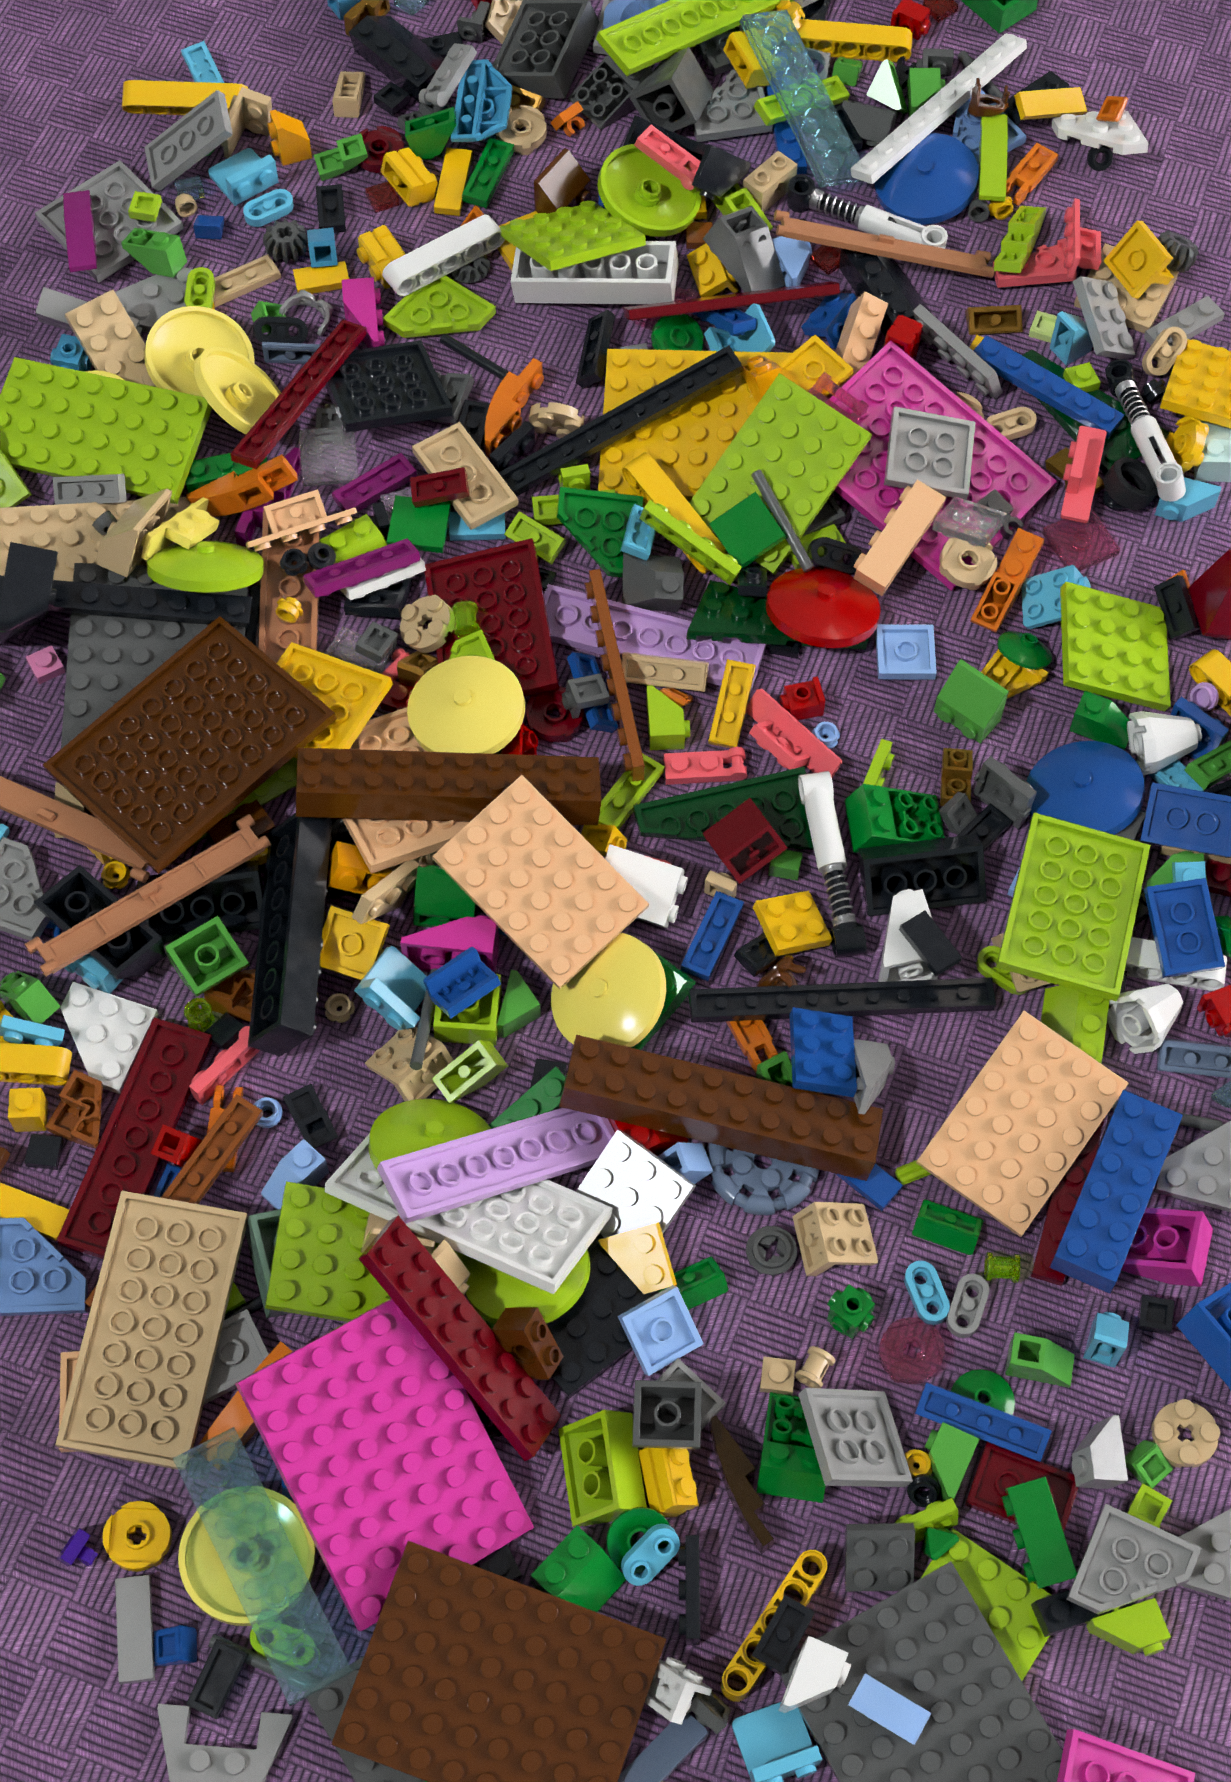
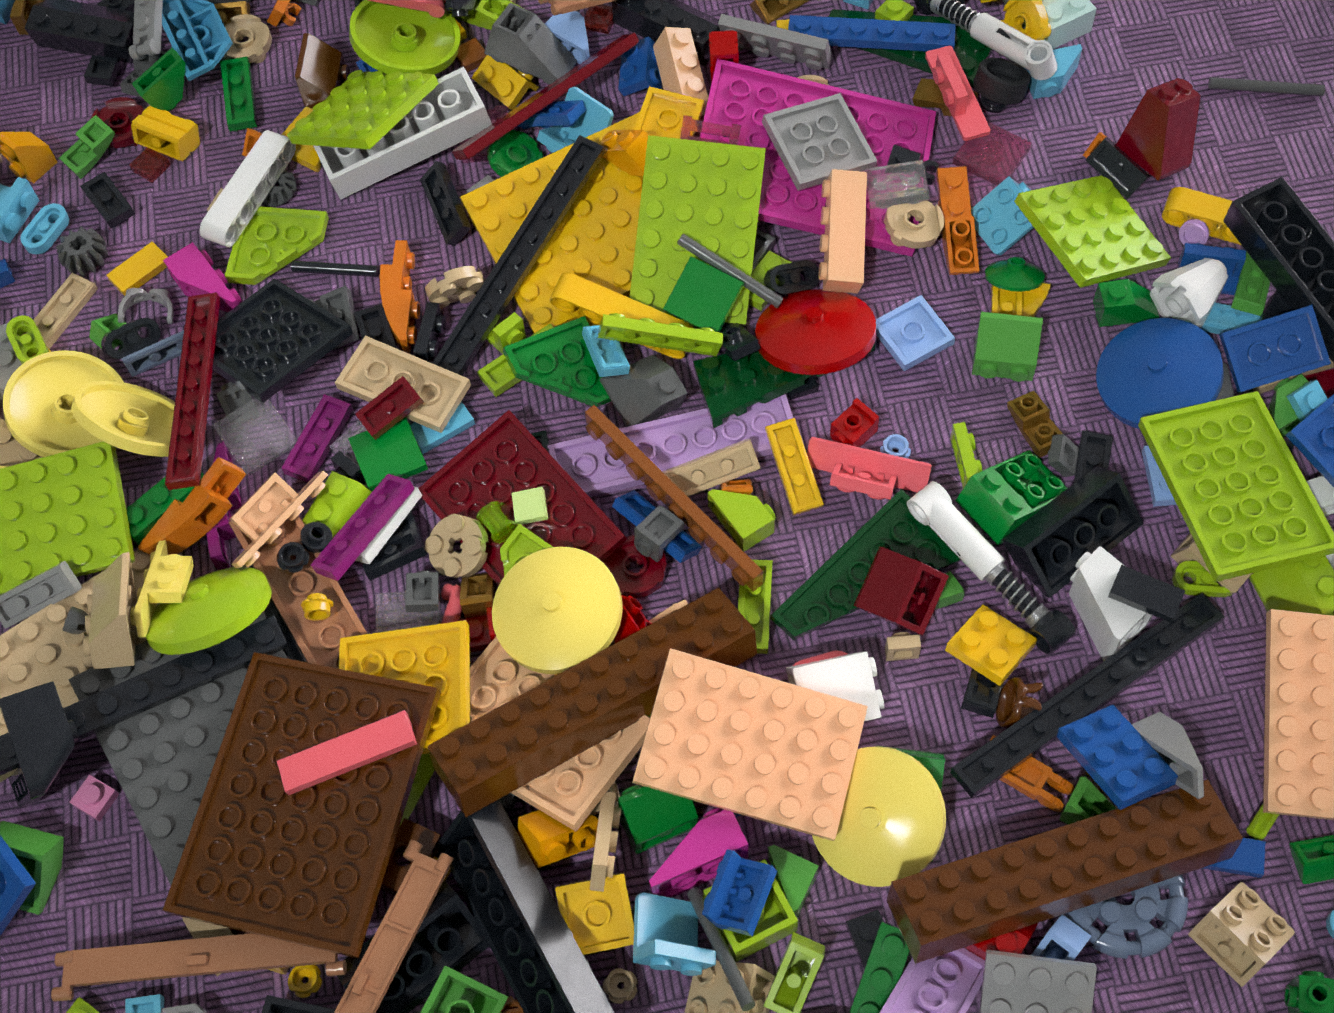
camera: 25 degrees left, 0 degrees up
(239, 723) = (346, 752): none -> coral tile
(322, 247) = (123, 239): dark azure brick -> none
(348, 97) = (58, 88): tan slope -> none
(378, 250) = (182, 216): yellow brick -> none
(452, 181) = (209, 118): yellow tile -> none
(499, 621) = (529, 506): none -> yellowish green tile
(546, 541) = (492, 405): lime plate -> none
(602, 836) = (768, 662): yellow bracket -> none
(704, 766) = (806, 539): coral plate -> none
(712, 936) = (926, 700): blue plate -> none
(766, 1238) = (1204, 970): dark grey gear -> none
(1004, 791) = (1096, 412): dark grey plate -> none
(1008, 422) = (856, 79): tan plate -> none

